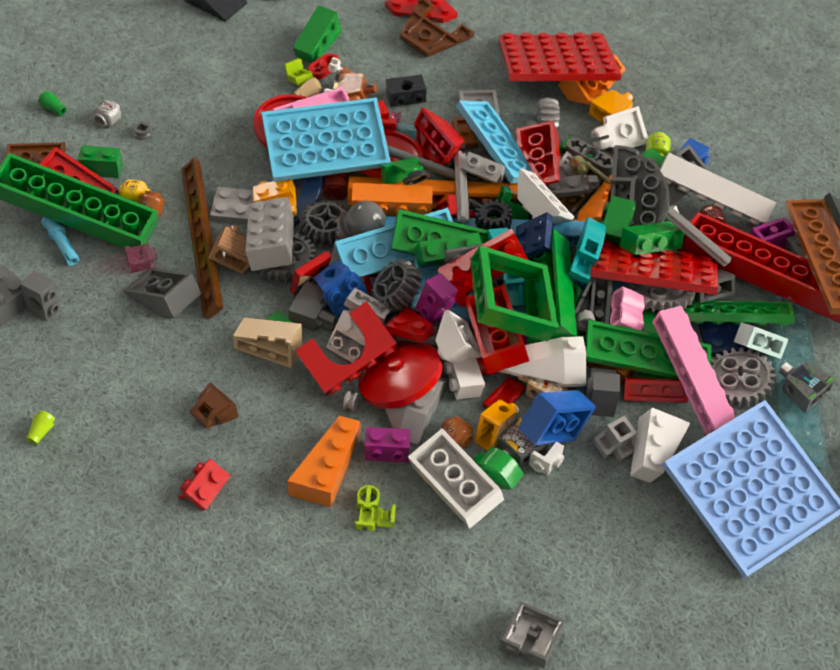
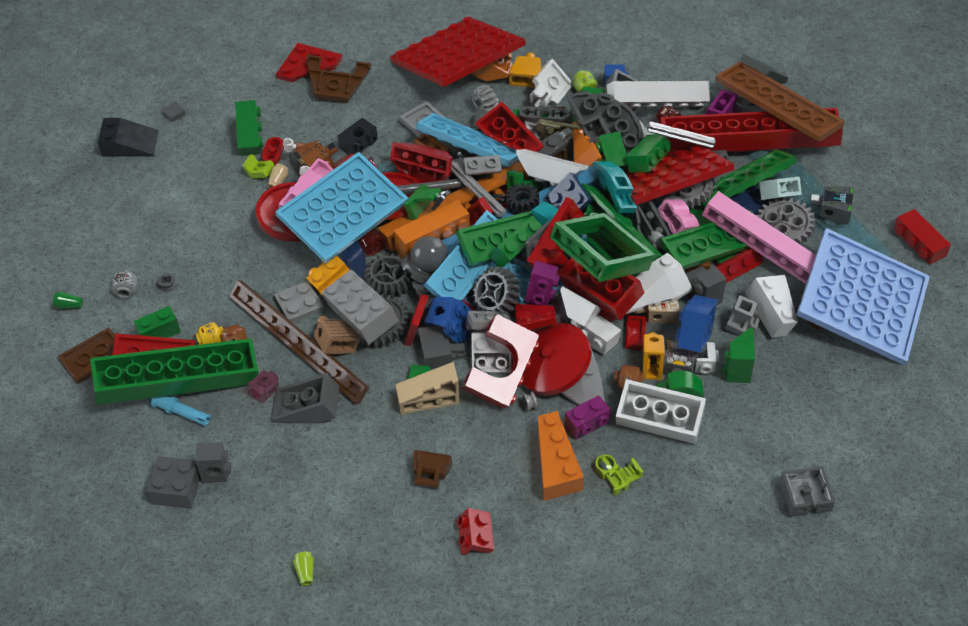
camera: 30 degrees left, 0 degrees up
(576, 473) = (740, 358): none -> green slope

